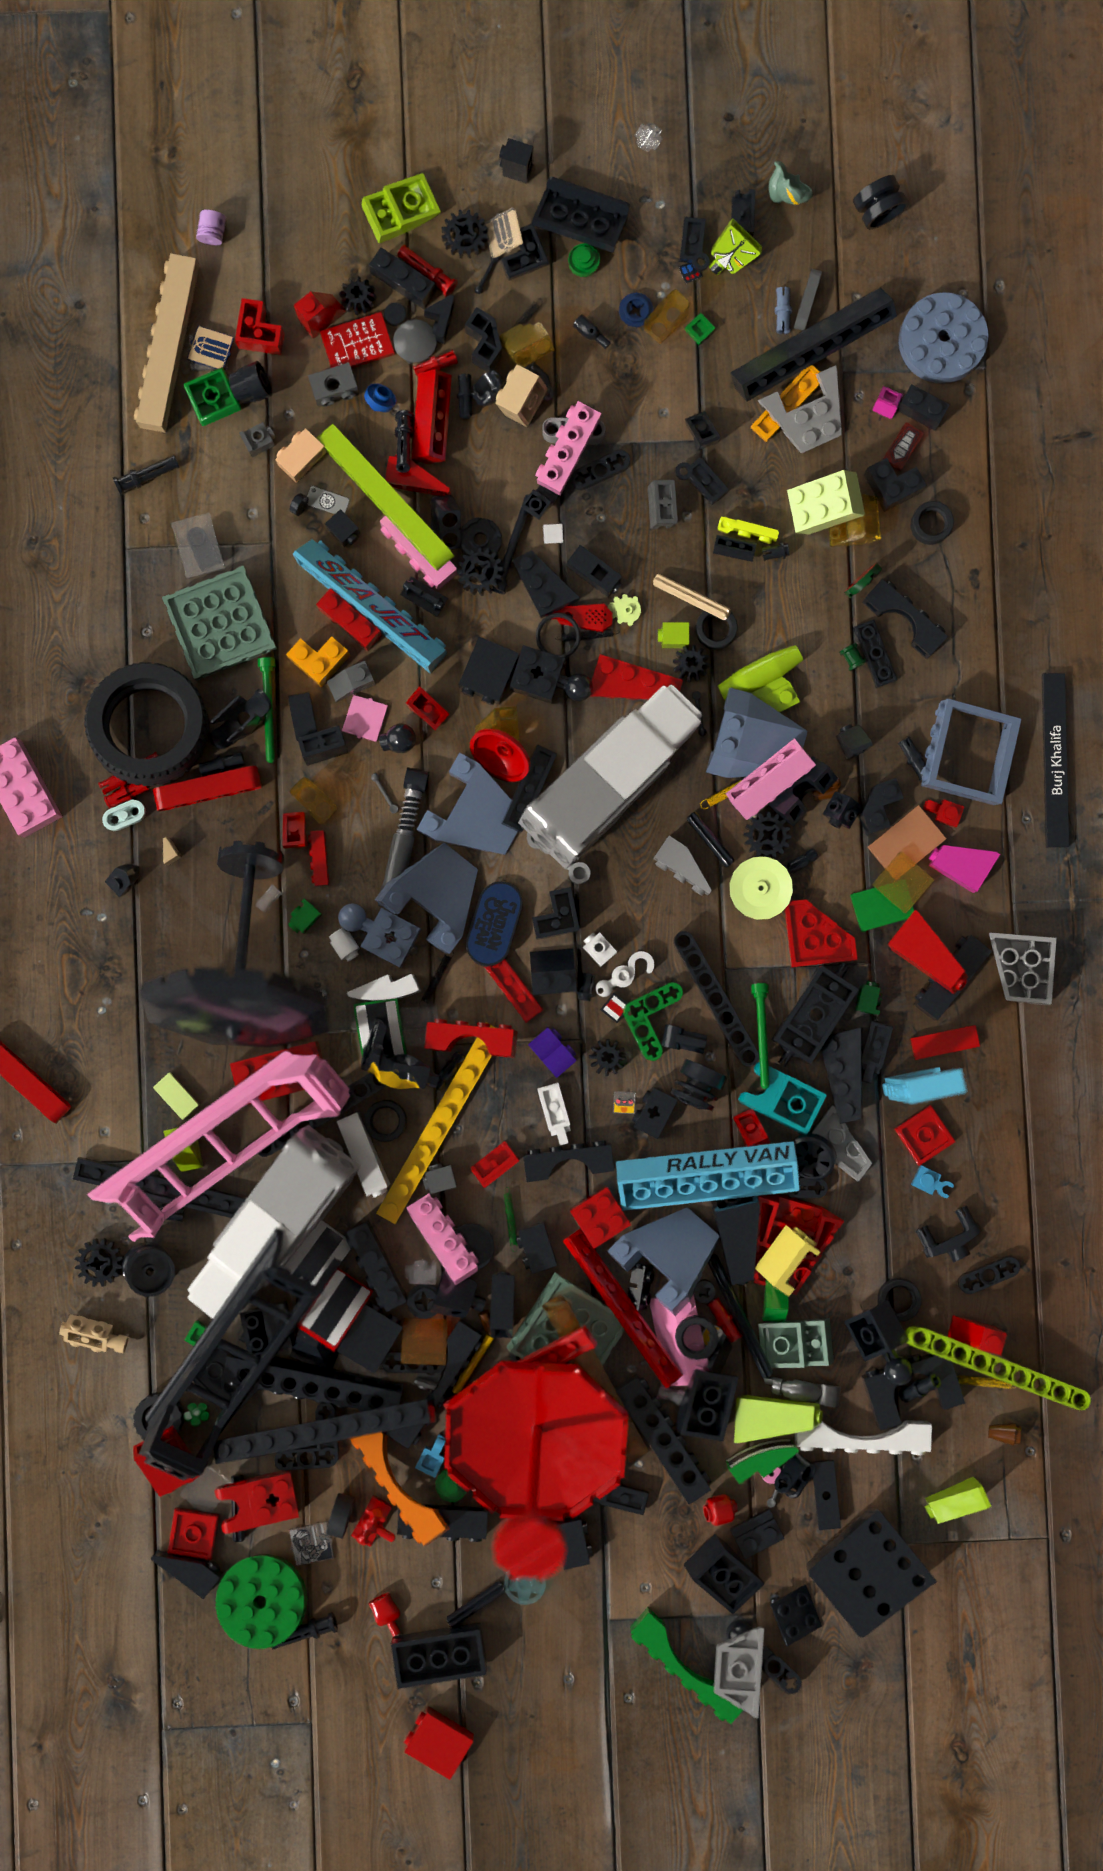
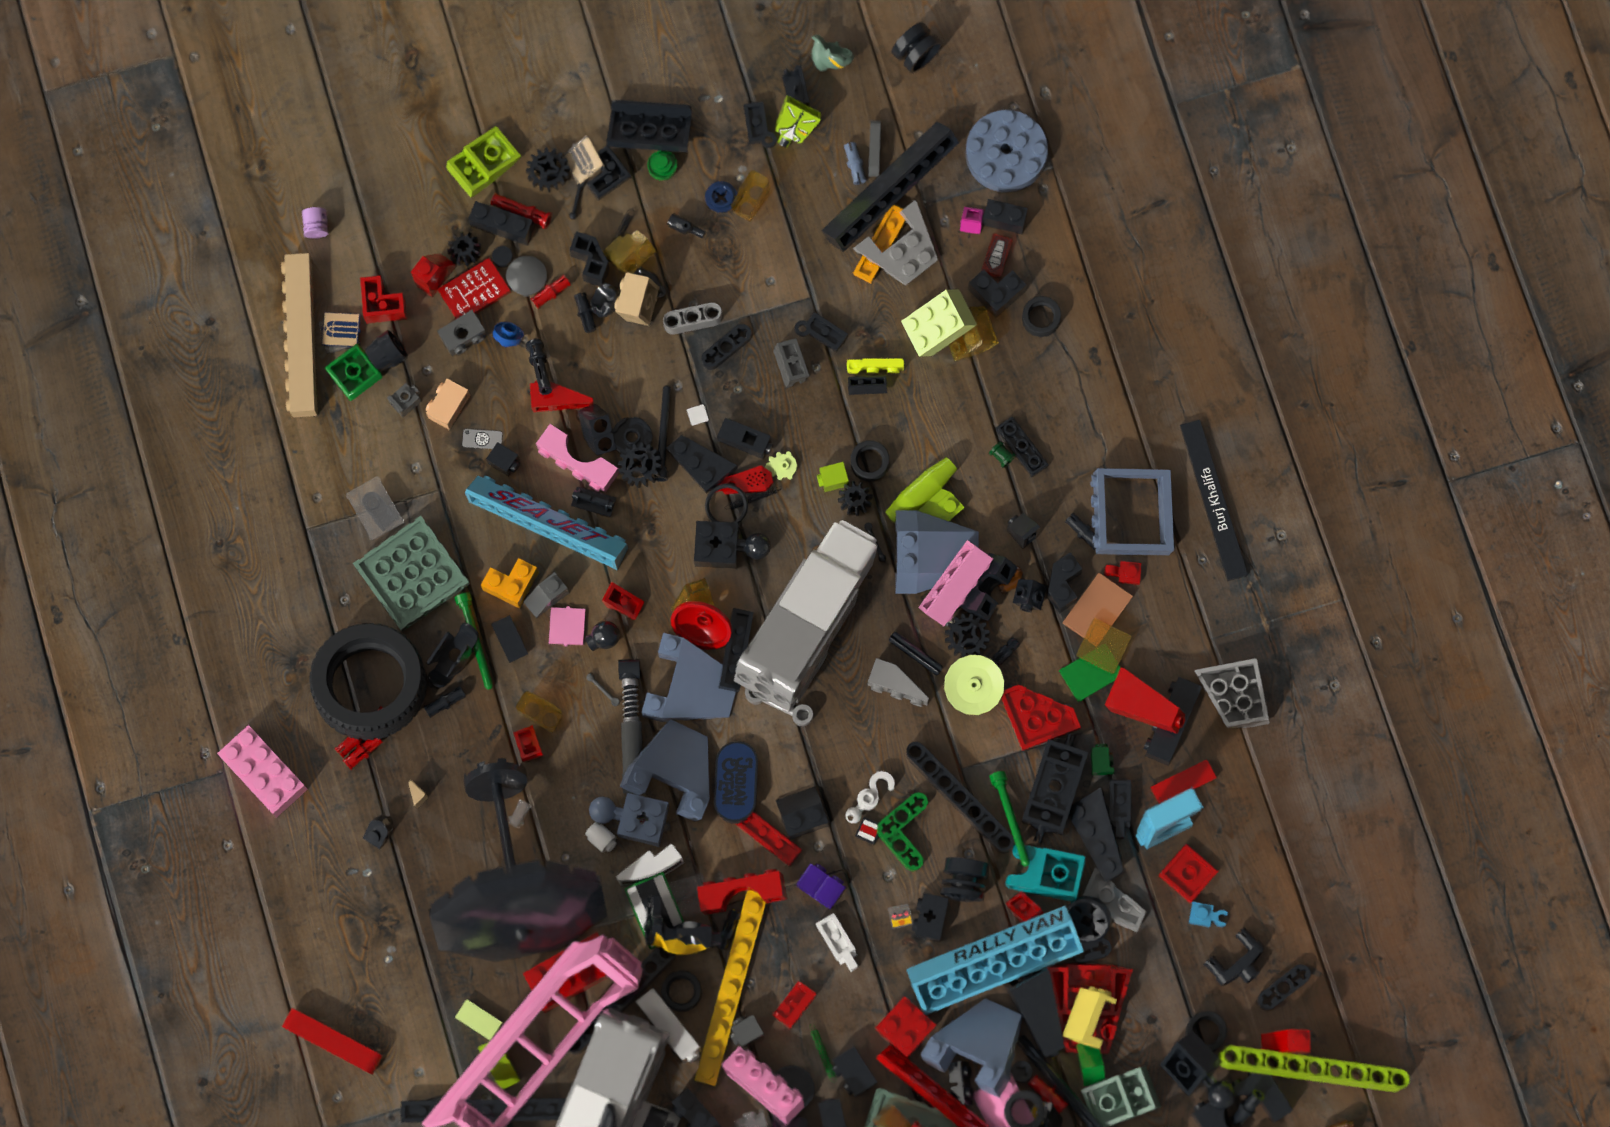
camera: 10 degrees left, 10 degrees down
(124, 814) = (364, 770): light aqua plate -> none
(169, 463) = (330, 441): black pin -> none
(207, 788) = (437, 727): red beam -> none
(299, 504) = (457, 448): black tile -> none
(304, 917) = (557, 821): green brick -> none
(319, 858) = (557, 763): red piece -> none
(322, 745) = (534, 660): black hinge -> none
(349, 619) = (522, 535): red arch -> none
(385, 497) = (536, 421): lime beam -> none
(431, 416) = (559, 339): red brick -> none
(441, 312) = (545, 245): black slope -> none
(442, 966) = (694, 846): black piece -> none
(488, 671) = (670, 553): black brick -> none
(516, 160) = (578, 94): black brick -> none
(540, 501) = (681, 383): black slope -> none
(540, 1164) = (887, 973): black arch -> none
(563, 918) = (798, 759): black brick -> none
(568, 448) = (692, 334): bright pink brick -> none
(586, 987) = (836, 814): black pin -> none
(599, 948) = (839, 779): white brick -> none
(609, 1050) = (873, 870): black gear -> none
(625, 680) = (800, 529): red wing -> none
(648, 136) = (692, 42): clear gear -> none
(678, 1039) = (934, 843): black piece -> none
(689, 273) = (761, 152): black sticker -> none
(691, 597) = (839, 438): tan axle -> none
(700, 329) = (783, 199): green tile -> none
(702, 430) = (810, 288): black slope -> none
(719, 796) = (912, 613): yellow piece -> none
(777, 551) = (907, 378): black pin -> none
(863, 580) = (992, 383): dark green tile -> none
(886, 599) = (1018, 395): black arch -> none
(963, 865) = (1154, 615): dark pink slope -> none
(974, 1379) = (1307, 1089): yellow piece -> none

